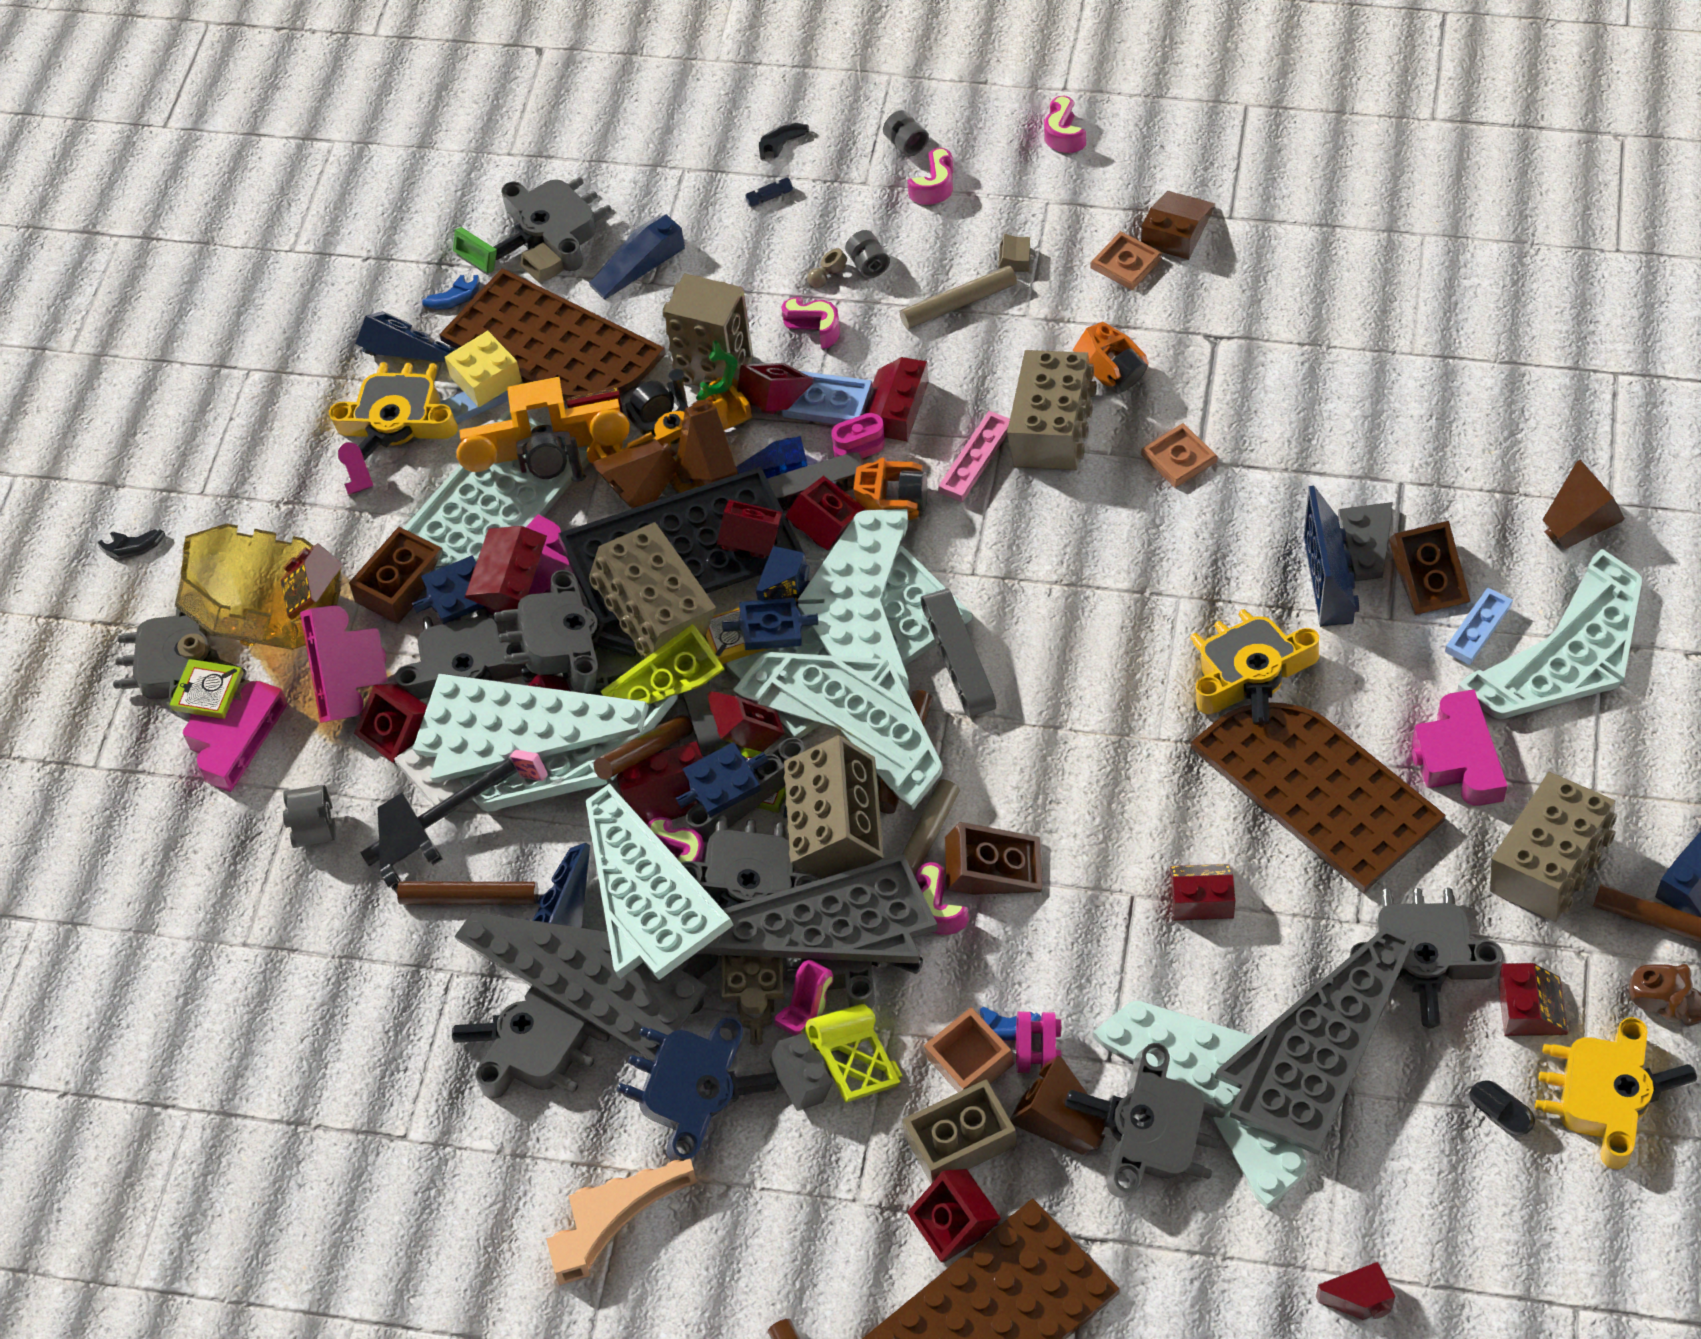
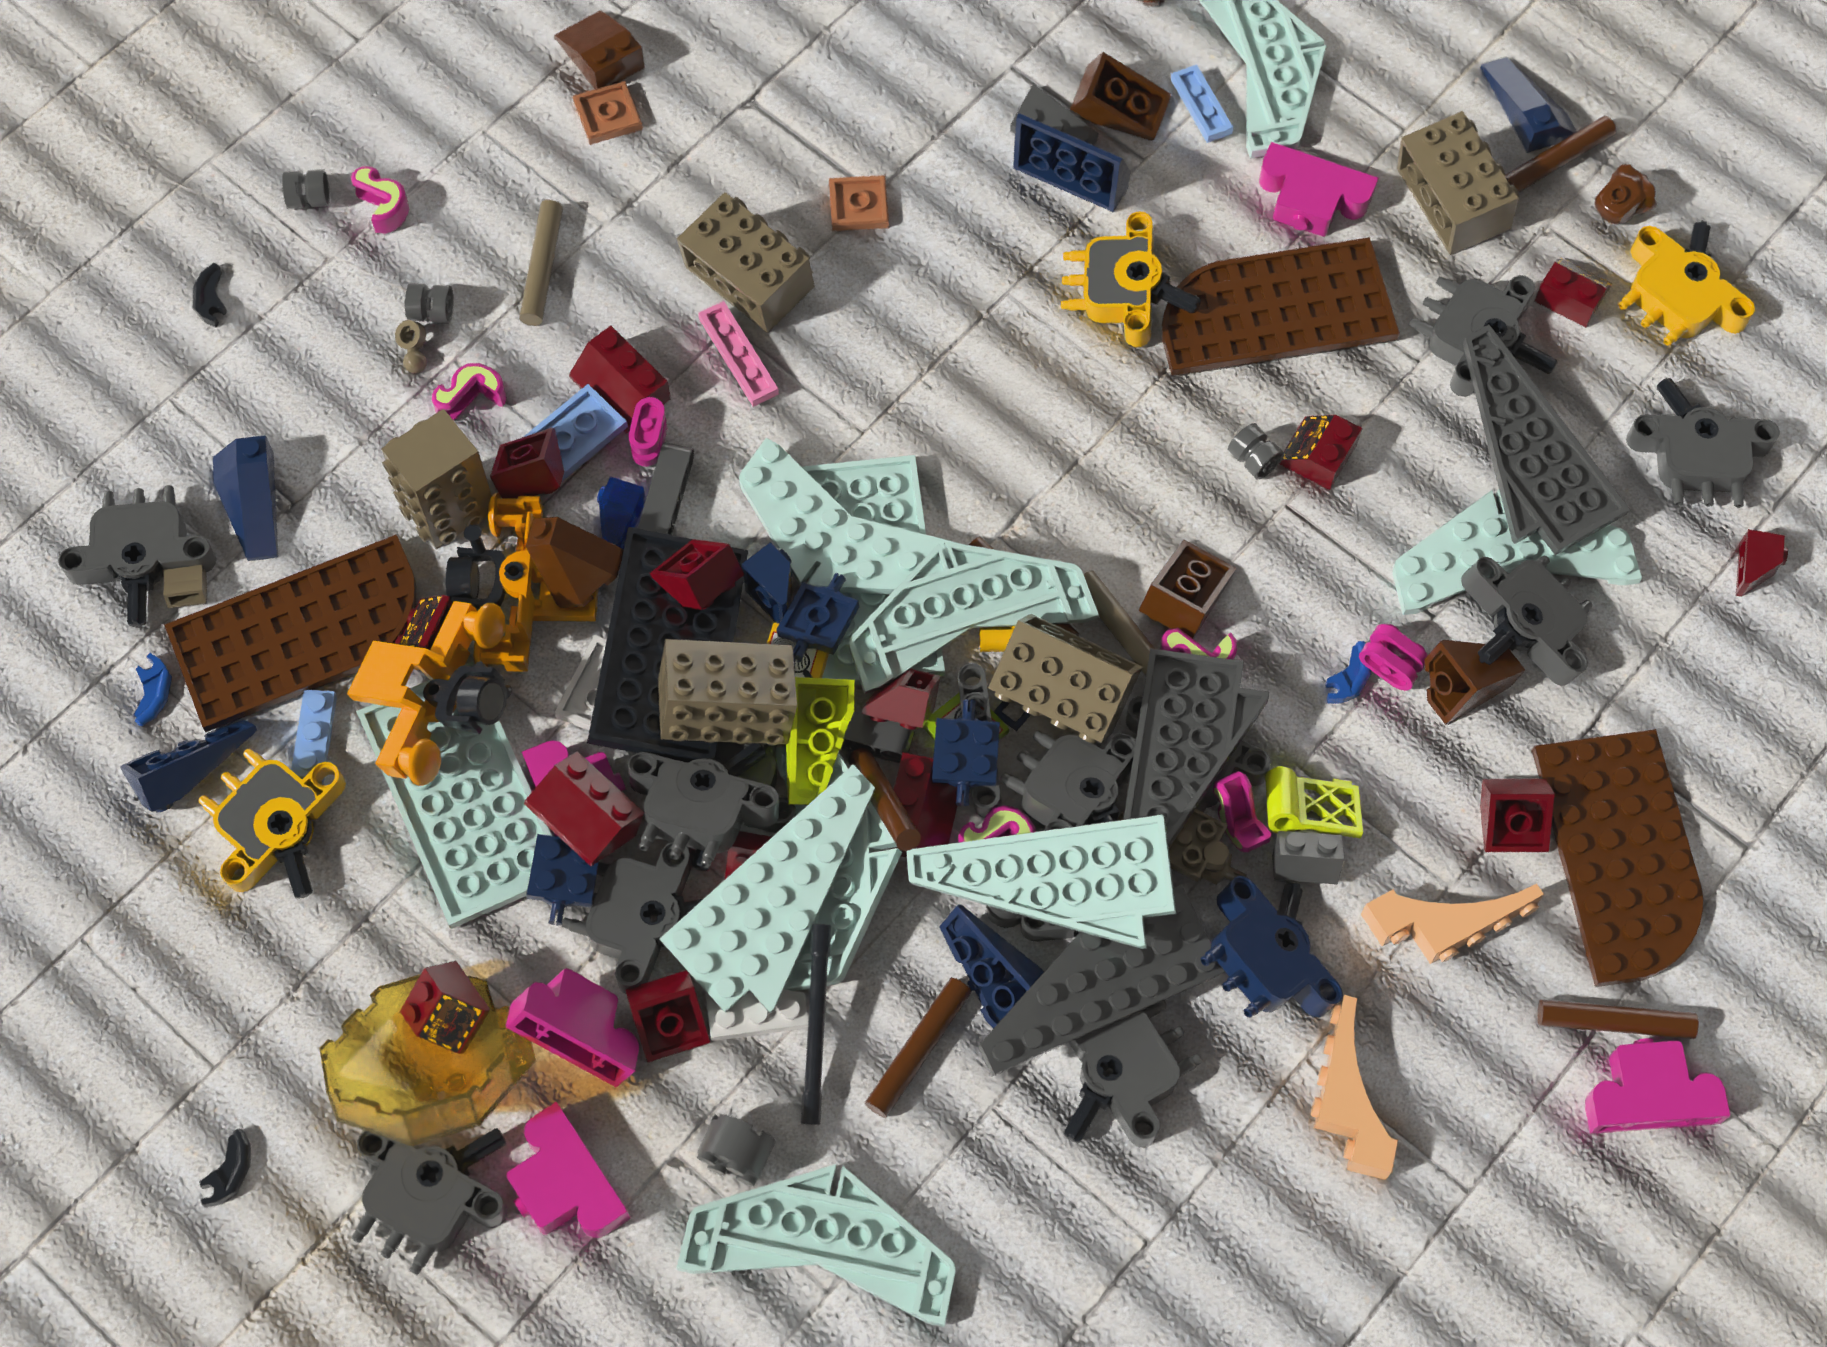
camera: 65 degrees left, 10 degrees up
(192, 652) = (446, 1171): dark tan plate -> none
(206, 689) = (505, 1175): tile -> none
(293, 914) = (805, 1226): none -> light aqua wing
(352, 458) = (321, 893): dark pink leg -> none
(393, 575) = (492, 920): reddish brown slope -> none
(400, 836) = (820, 1073): black flag -> none
(474, 250) = (115, 638): bright green tile -> none
(483, 368) = (296, 706): light yellow brick -> none
(529, 765) = (834, 909): tile -> none
(639, 471) = (553, 635): reddish brown slope -> none
(726, 382) = (494, 480): green helmet -> none
(769, 192) = (270, 342): dark blue axle -> none
(809, 1213) = (1442, 926): none -> light nougat arch
(823, 512) = (715, 506): dark red slope -> none
(872, 485) = (718, 454): orange piece -> none
(958, 652) = (954, 488): dark grey beam -> none
(959, 1131) = (1447, 764): dark tan brick -> none
(969, 1052) = (1377, 713): nougat piece -> none
(1015, 253) = (527, 189): dark tan piece -> none
(1058, 129) = (408, 73): dark pink animal -> none
(1102, 345) = (710, 178): orange piece -> none
(1159, 840) = (1253, 447): none -> dark grey wheel
(1428, 1192) = (1701, 447): none -> dark grey piece
(1502, 1107) = (1654, 365): black arm -> none

